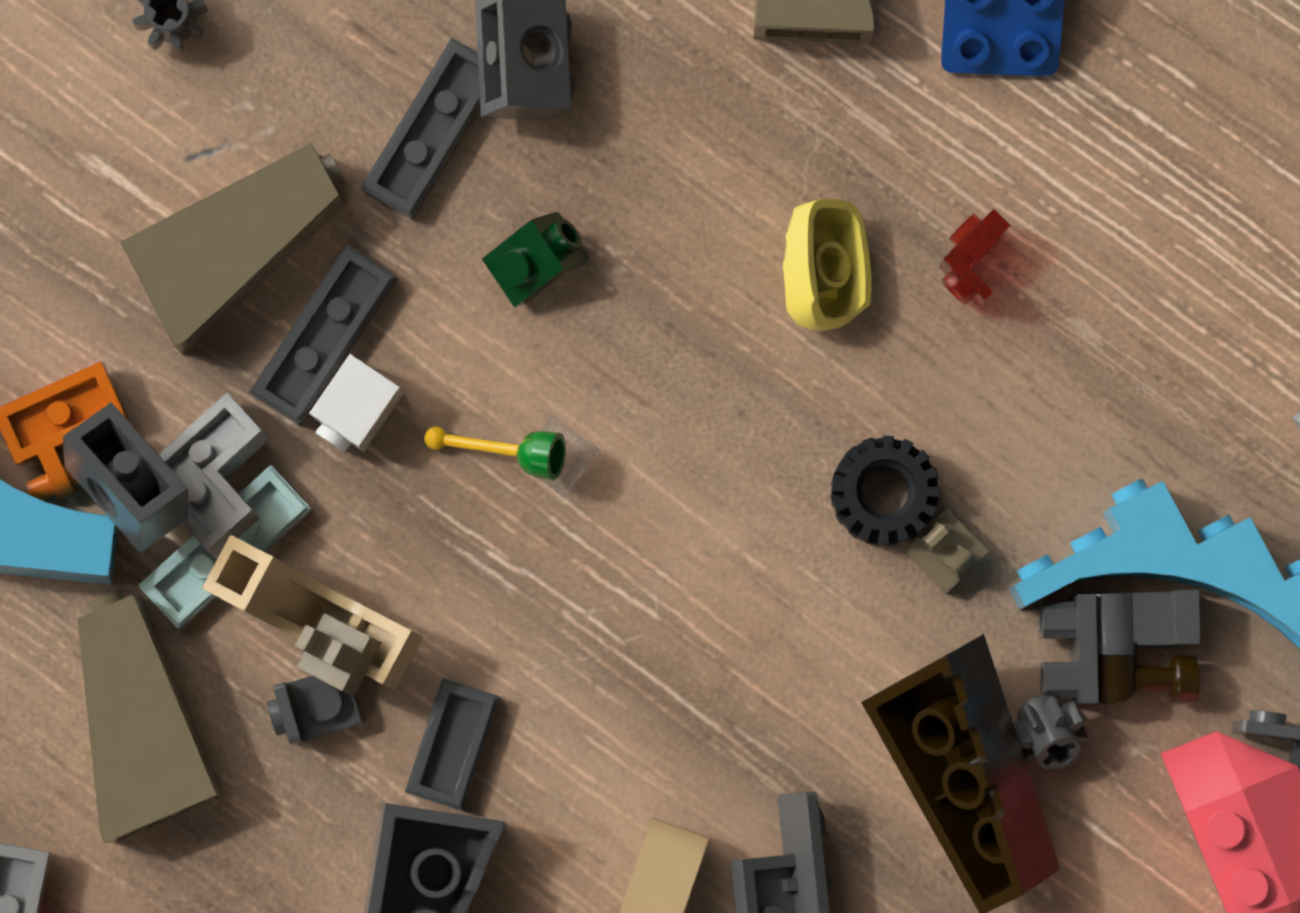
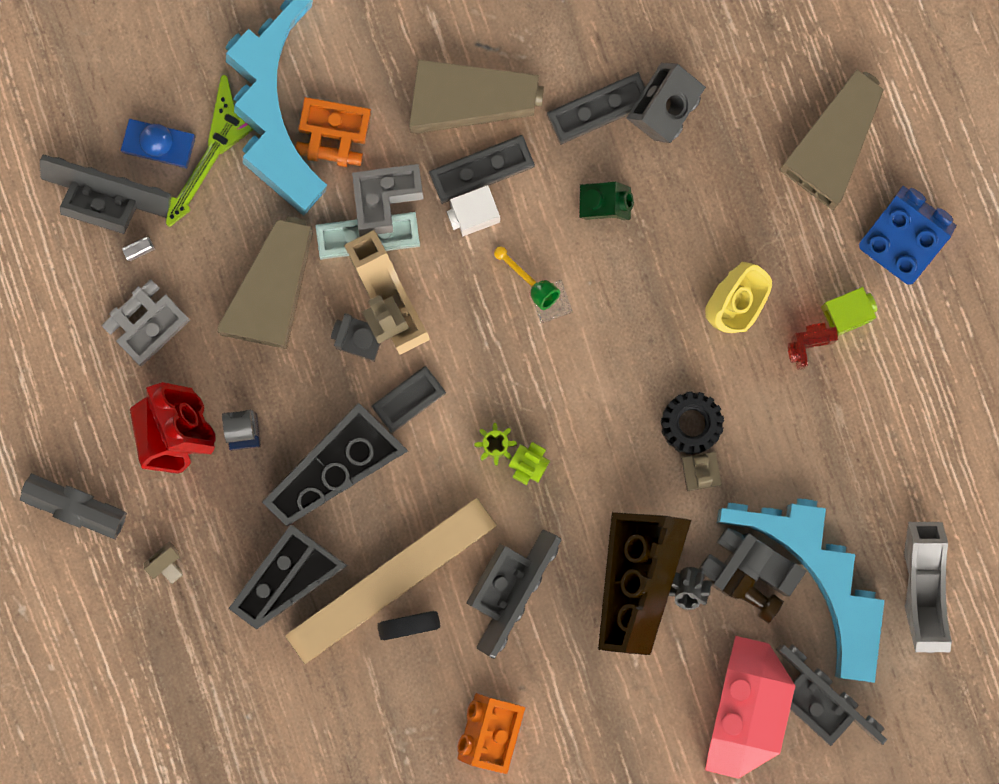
camera: 30 degrees right, 0 degrees up
(125, 477) = (344, 169): dark grey brick -> none
(613, 707) = (495, 434): none -> lime gear
(692, 714) = (529, 463): none -> lime gear
(997, 171) = (850, 310): none -> lime brick

